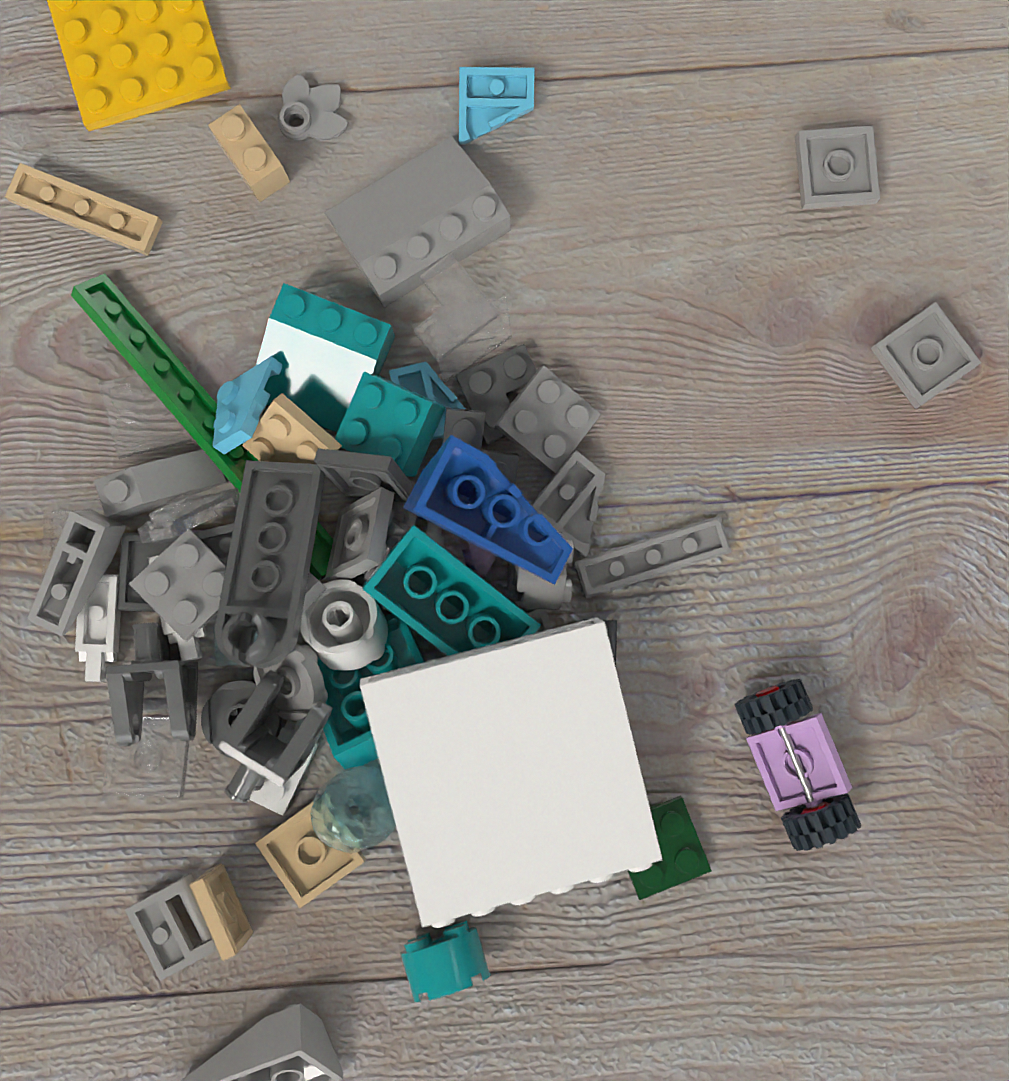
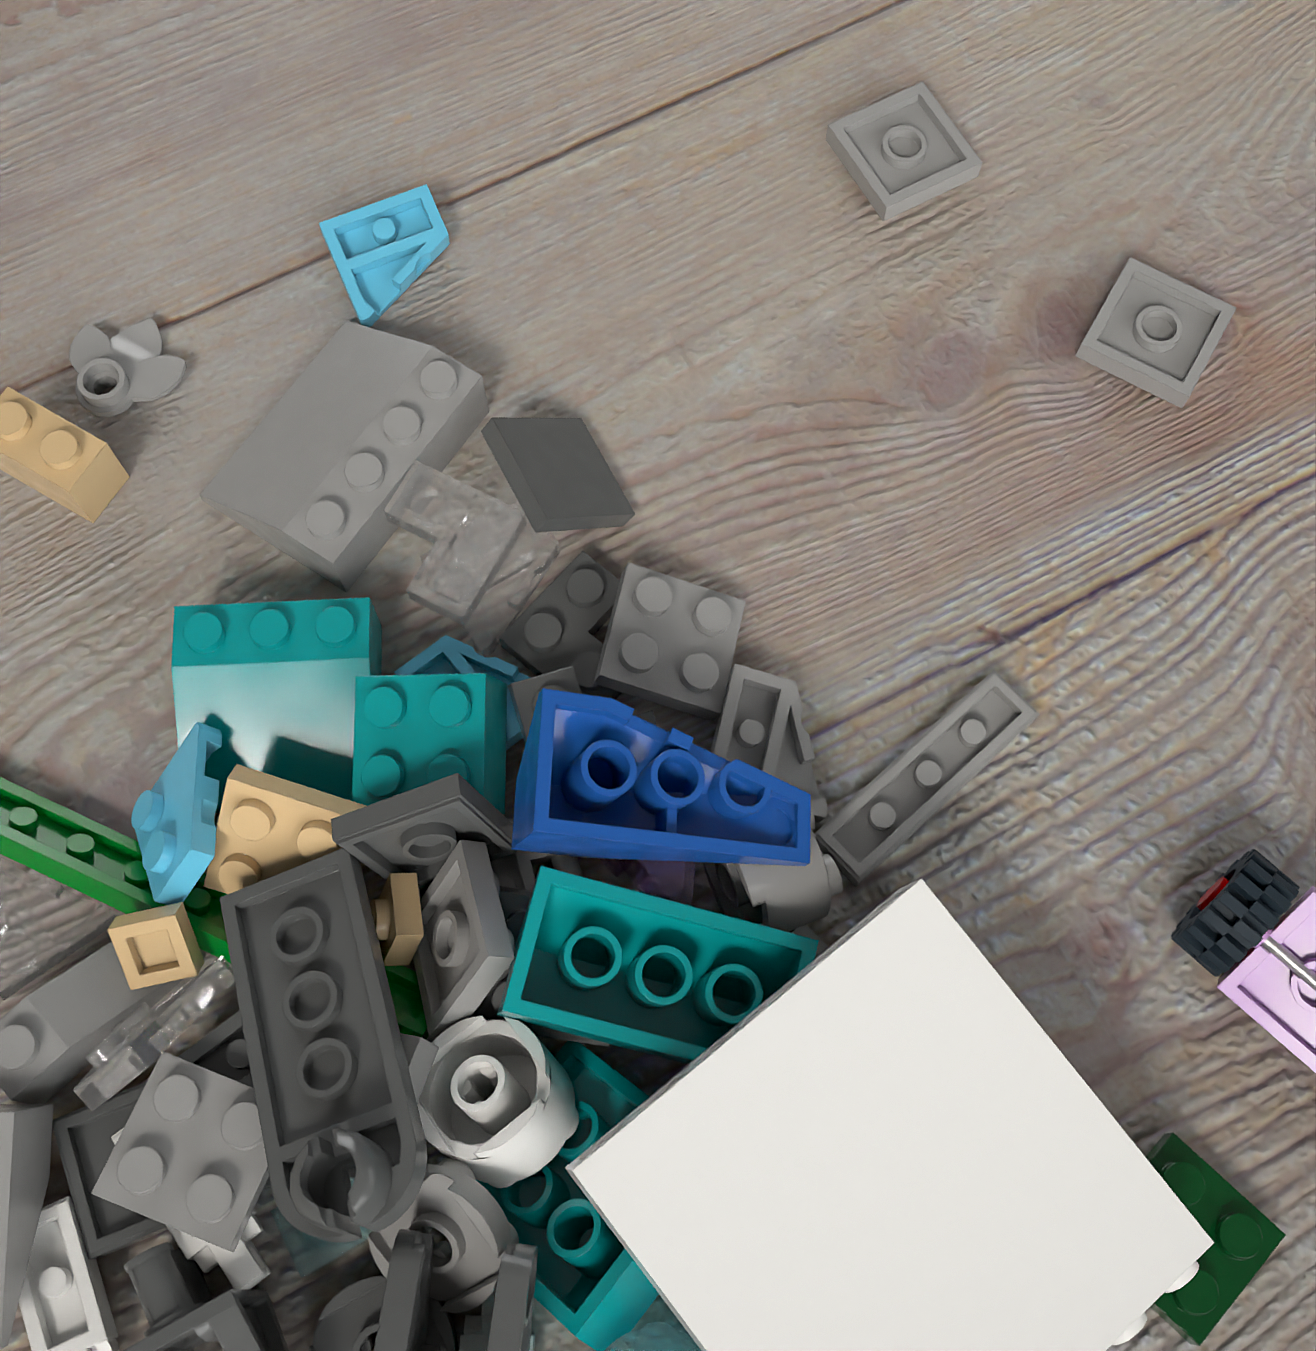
camera: 25 degrees left, 15 degrees down
(205, 469) = (156, 945): none -> tan plate
(334, 509) = (398, 918): none -> tan plate
(529, 292) = (557, 473): none -> dark grey tile

